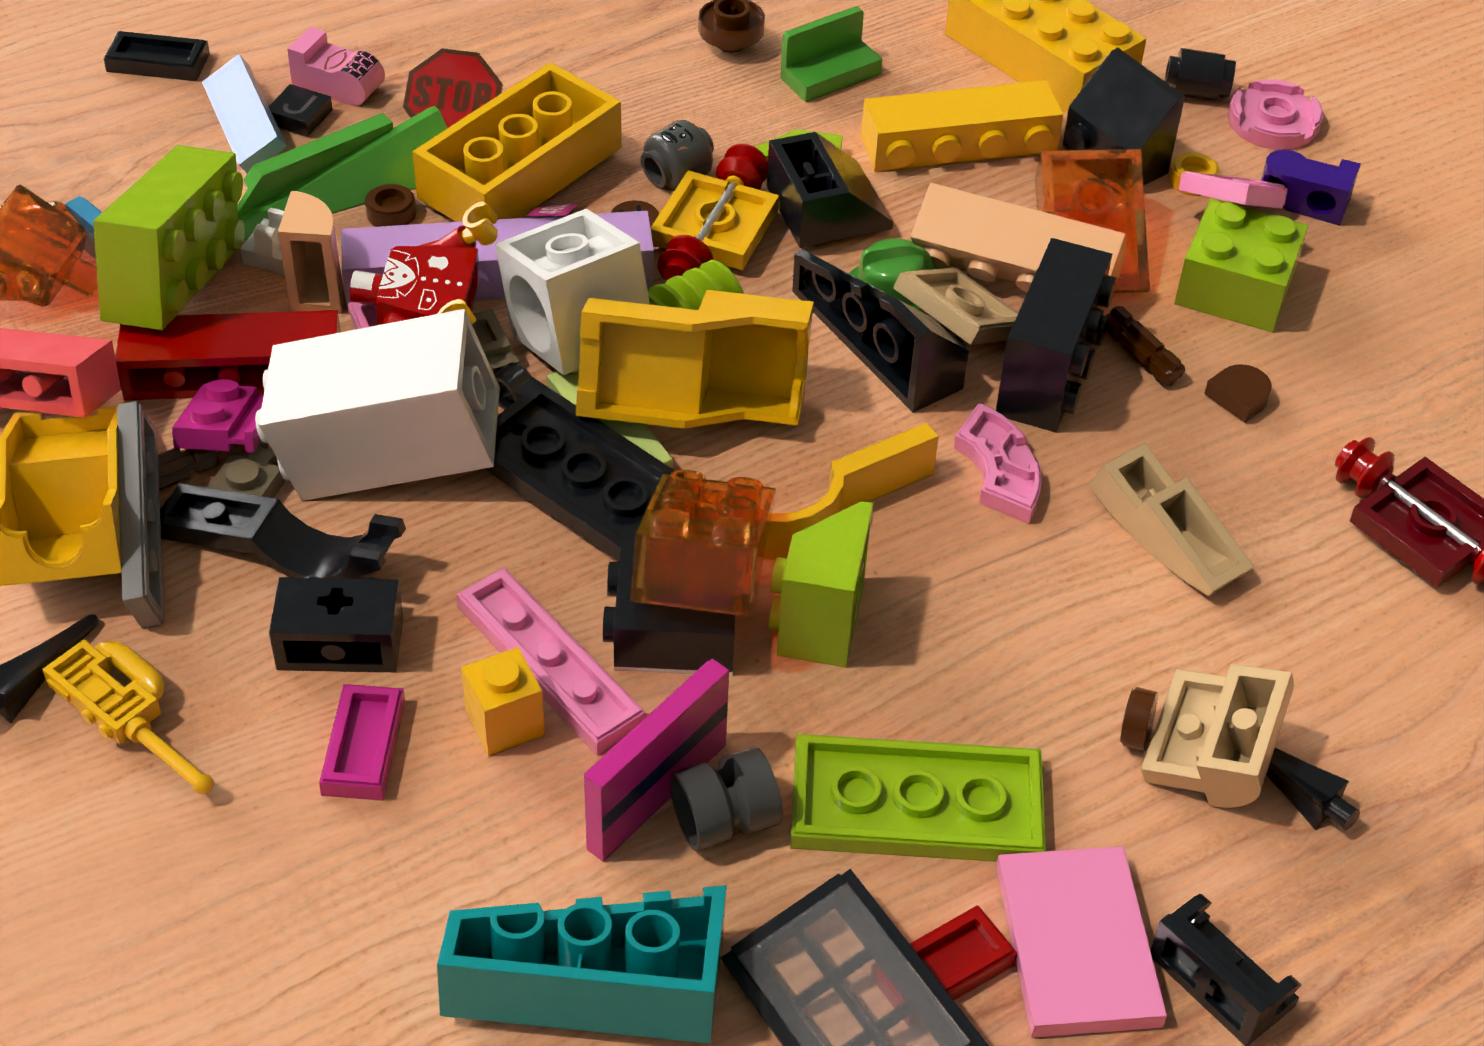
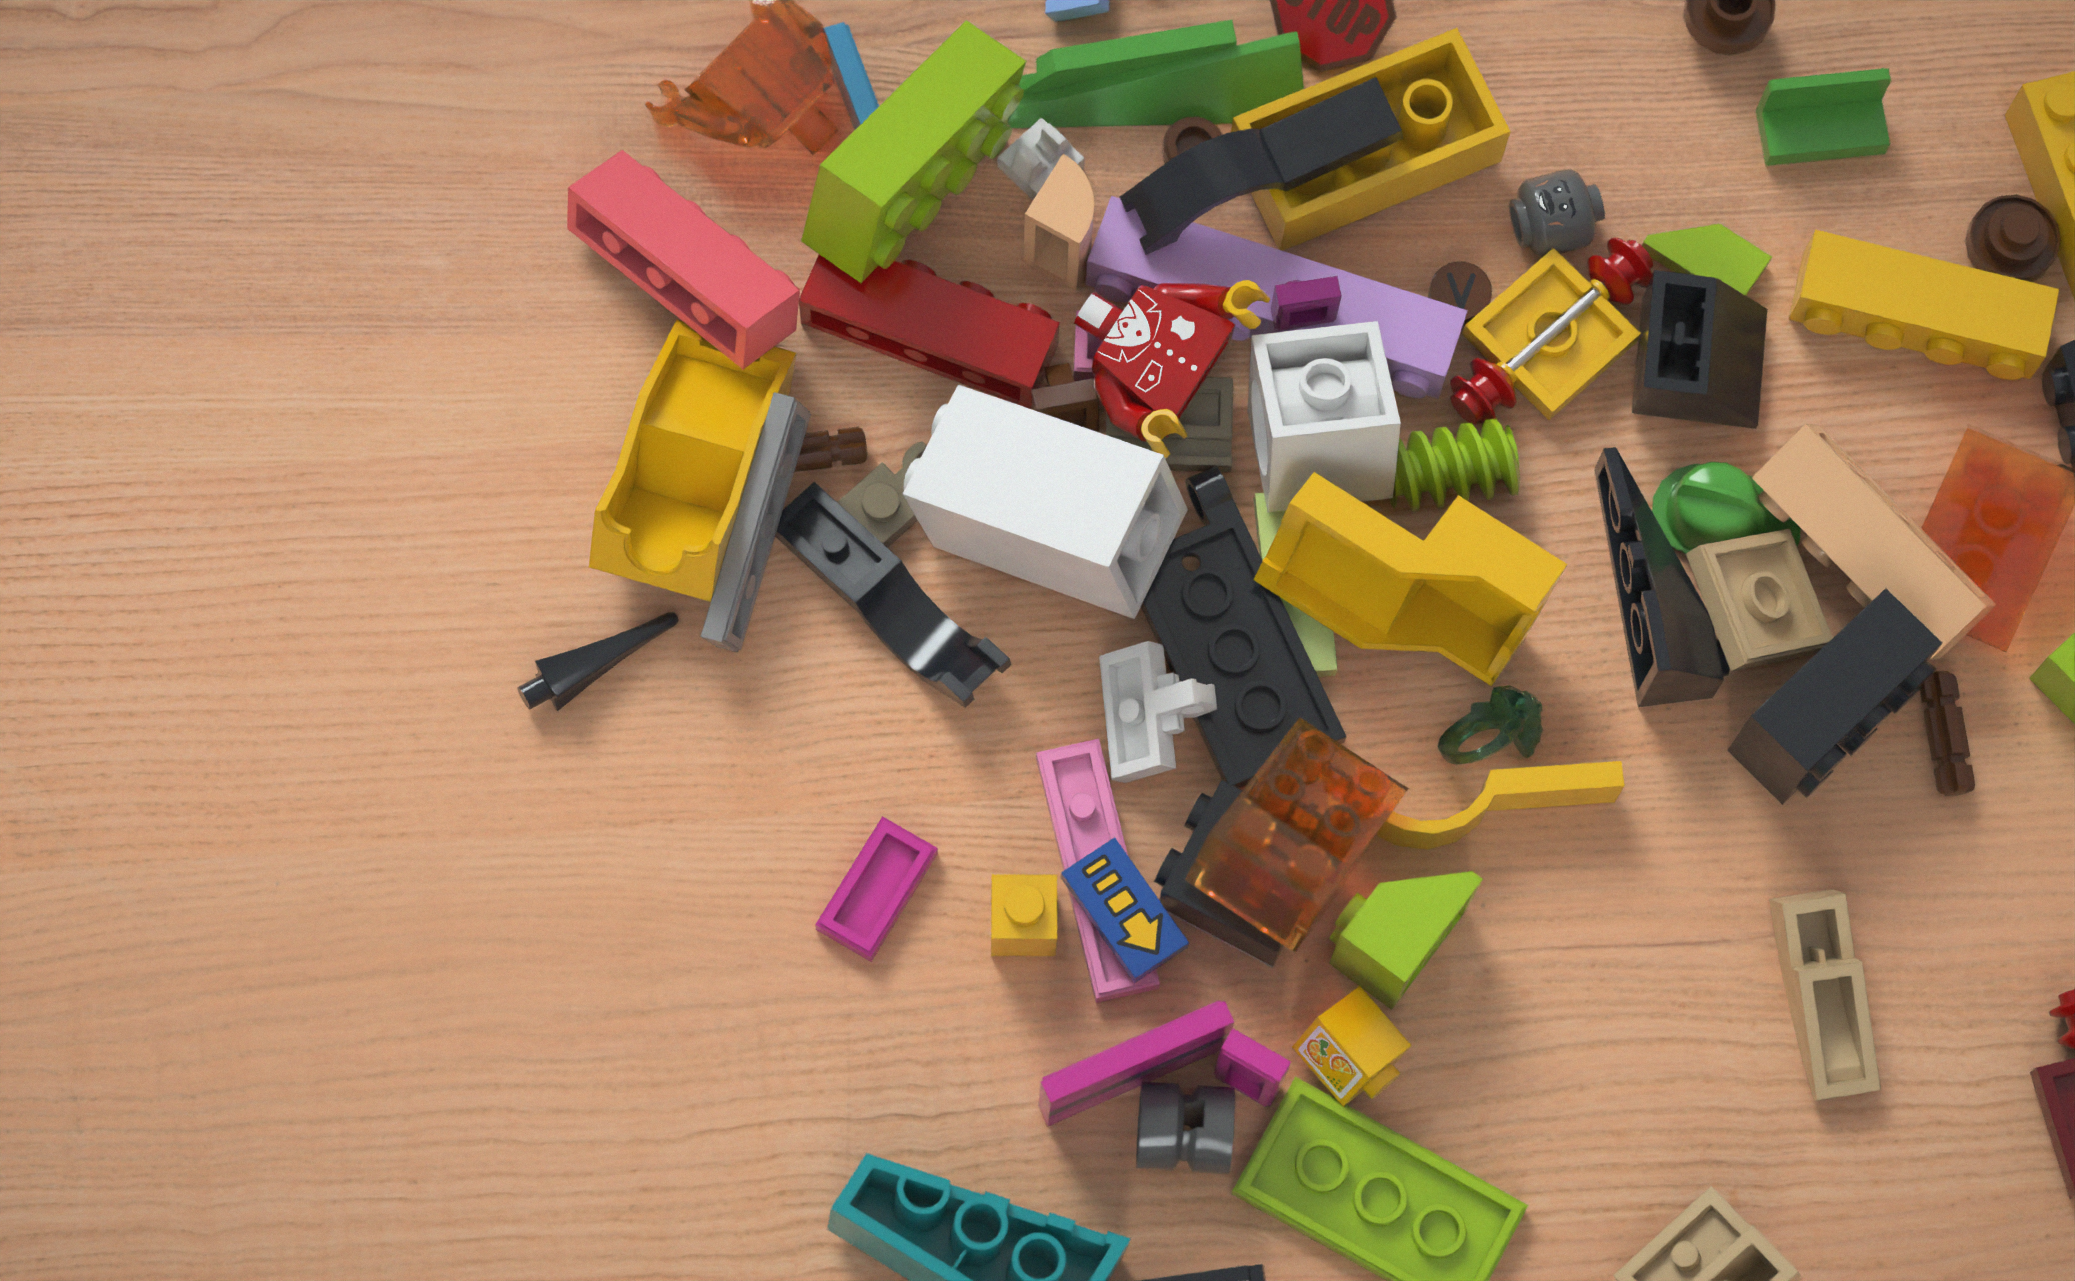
camera: 25 degrees right, 25 degrees up
(119, 711) = (658, 753): yellow piece -> none
(219, 417) = (888, 415): dark pink plate -> none
(336, 624) = (922, 769): black brick -> none
(466, 147) = (1262, 159): none -> black piece
(523, 217) = (1305, 303): none -> magenta tile
(534, 527) = (1146, 710): none -> white hinge
(553, 209) = (1369, 248): dark pink sticker -> none
(589, 665) = (1124, 910): none -> blue tile
(760, 717) = (1251, 1068): none -> dark pink tile
(818, 437) = (1507, 711): none -> clear green piece
(833, 687) = (1353, 1048): none -> yellow brick
(994, 69) = (2013, 238): none -> reddish brown plate
(1005, 461) = (1698, 827): bright pink tile -> none
(1139, 718) = (1644, 1218): reddish brown tile -> none
(1240, 390) = (2022, 844): reddish brown tile -> none

